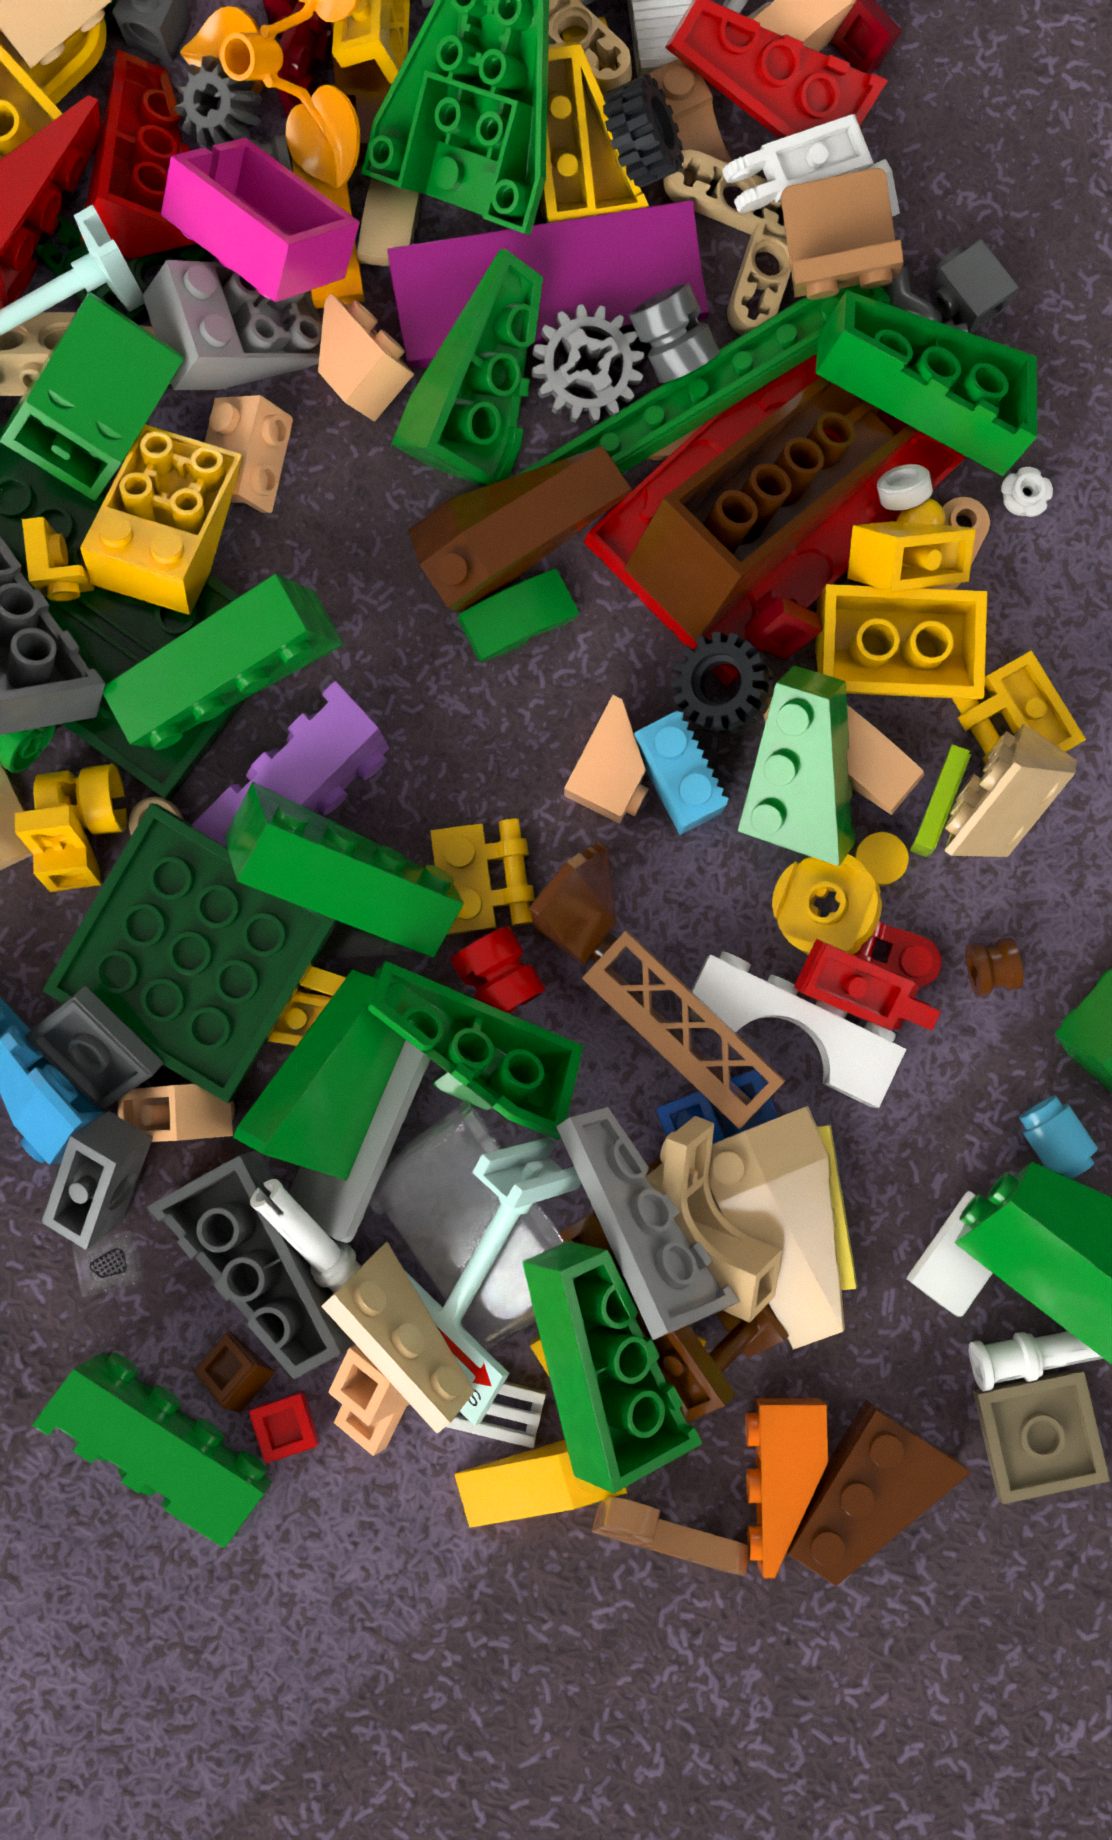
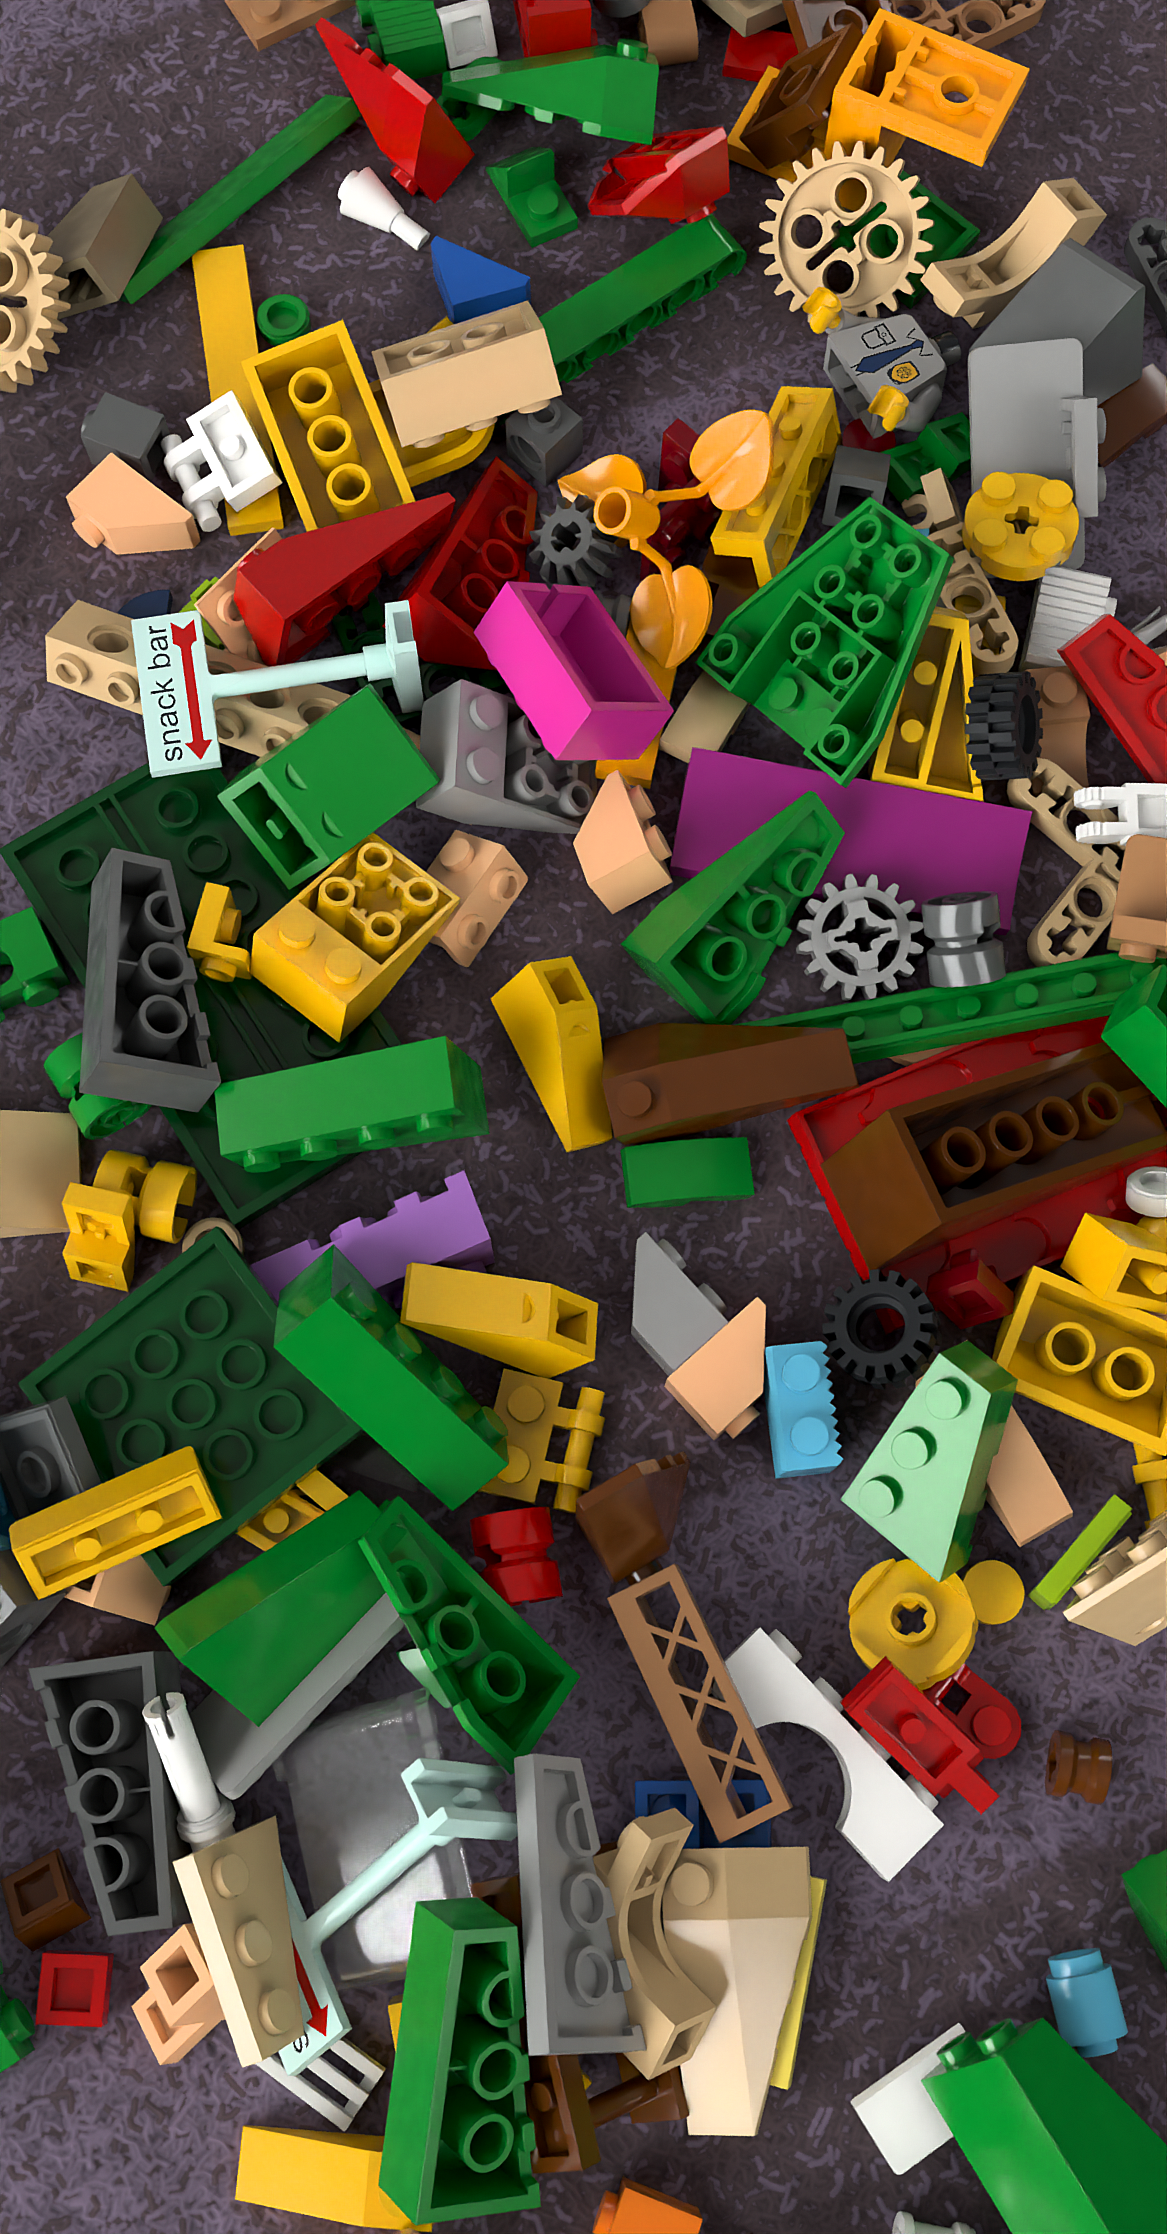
camera: 15 degrees right, 10 degrees down
(166, 1068) = (113, 1522): none -> yellow slope
(371, 546) = (560, 1047): none -> yellow slope
(413, 789) = (502, 1317): none -> yellow slope
(545, 733) = (667, 1309): none -> light grey slope

